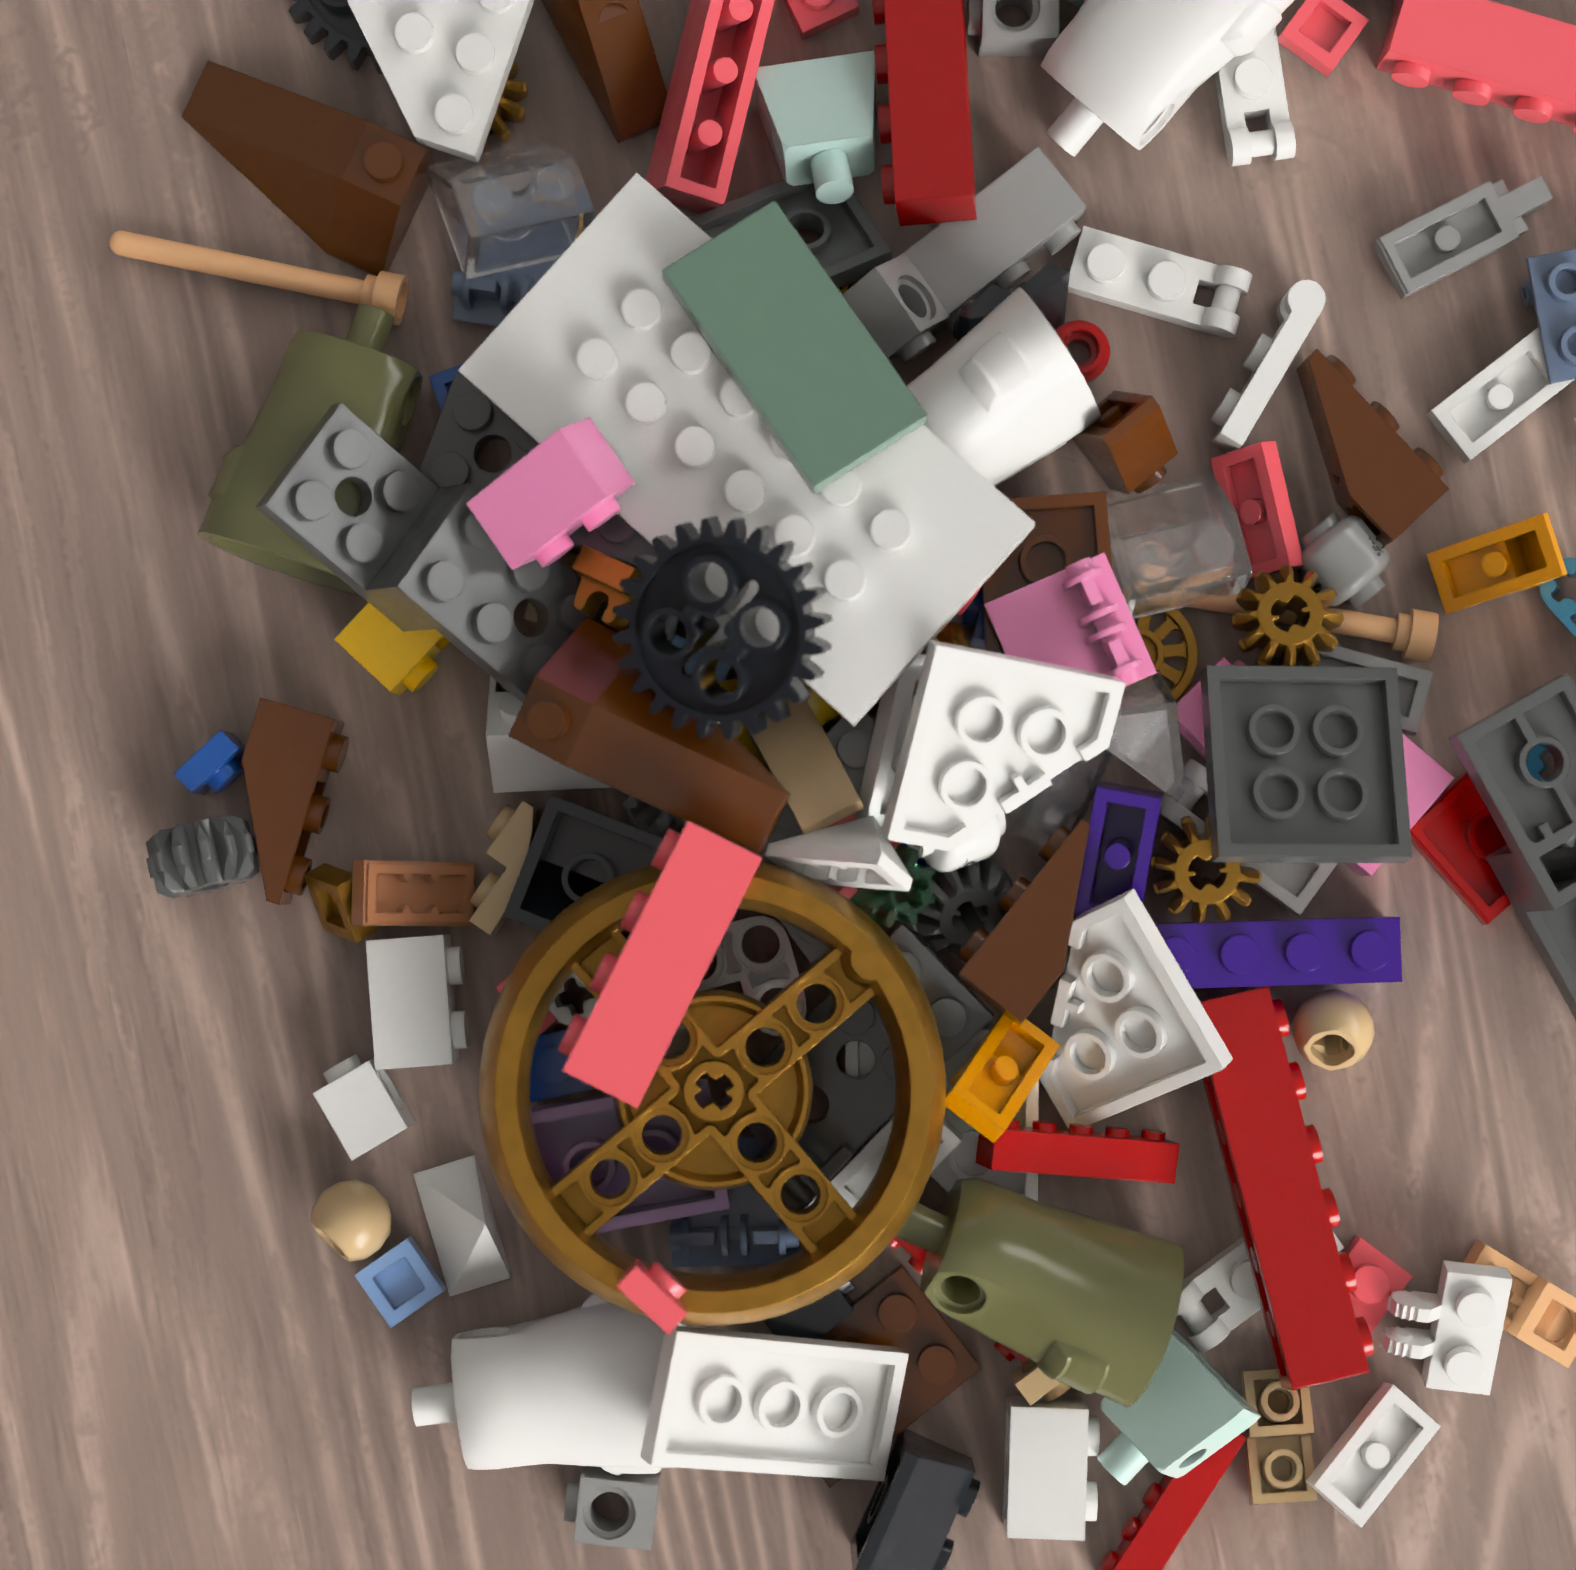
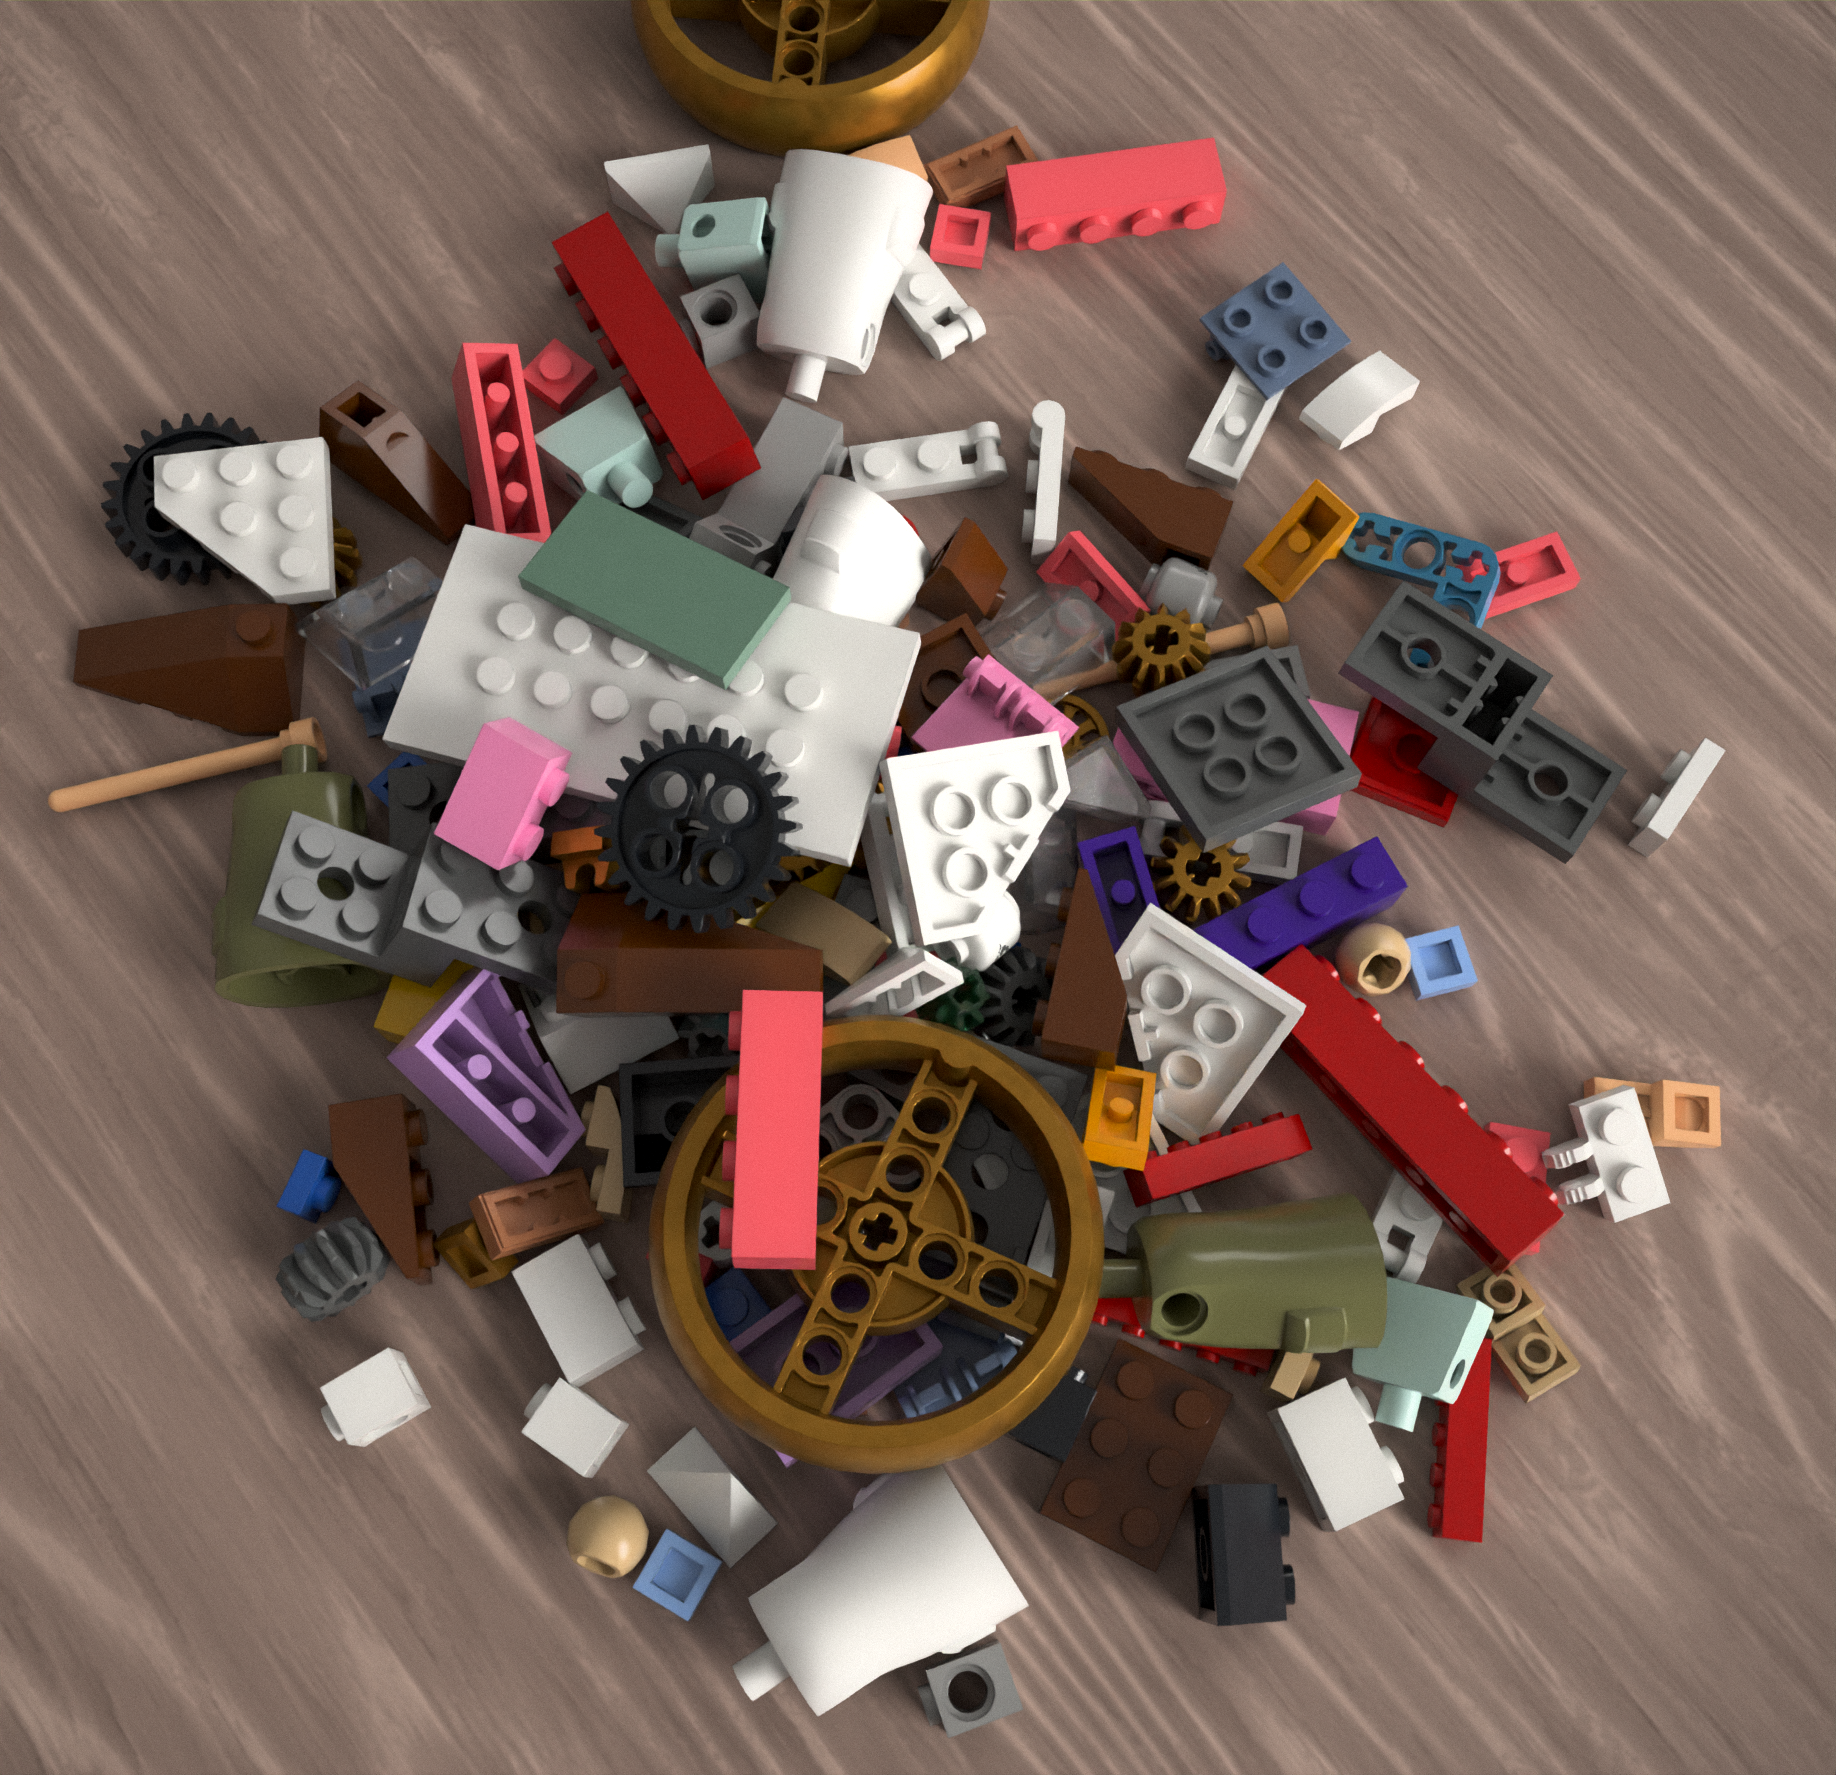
camera: 30 degrees left, 15 degrees down
(191, 992) = (373, 1399): none -> white brick
(422, 745) = (489, 1078): none -> lavender wedge
(654, 1293) = (910, 1426): coral plate -> none
(773, 1404) = (1066, 1504): white plate -> none
(1373, 1454) = (1604, 1301): white plate -> none
(1397, 1062) = (1439, 963): none -> light blue plate
(1458, 233) = (1138, 330): light grey hinge -> none

